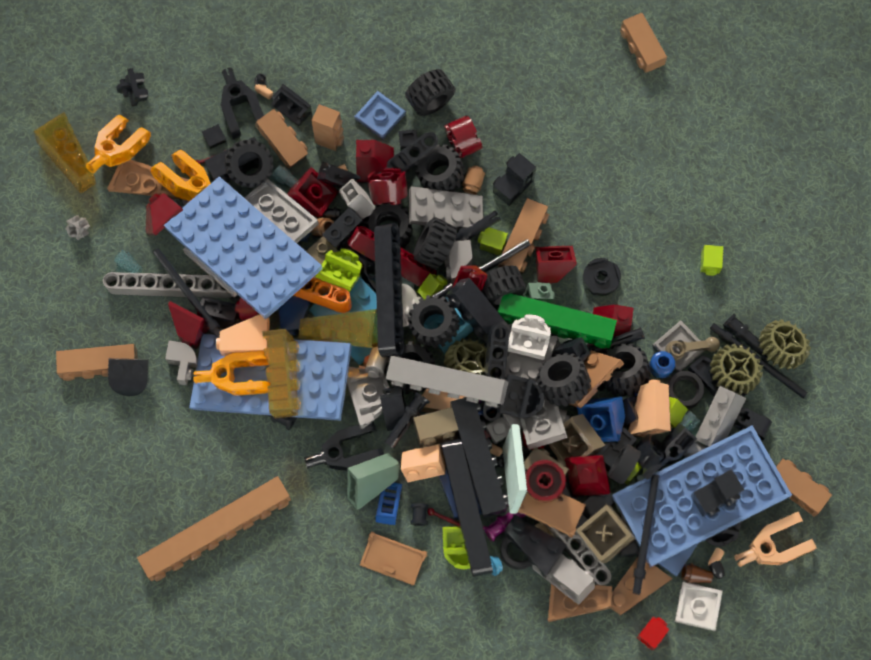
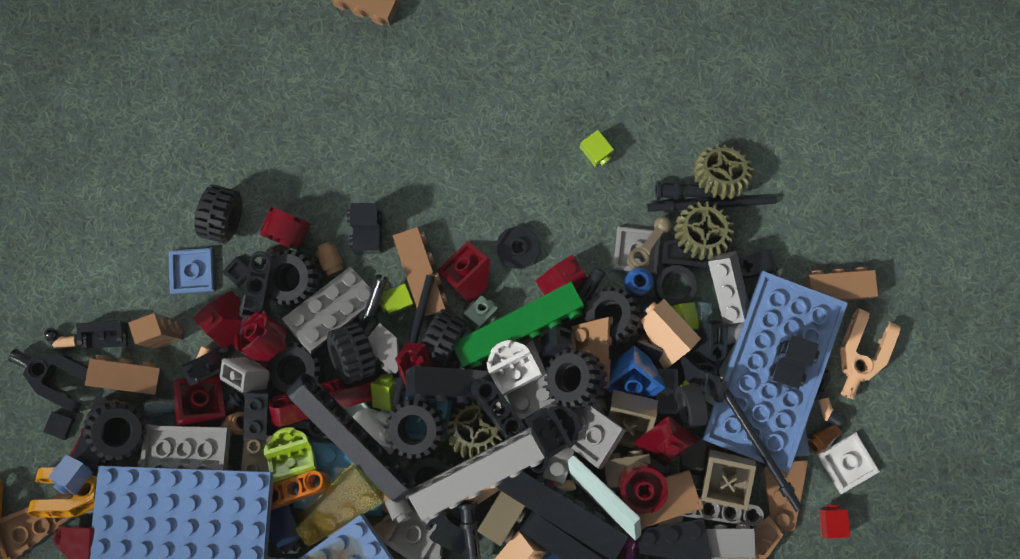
camera: 40 degrees left, 10 degrees up
(197, 167) = (70, 475): none -> medium blue brick

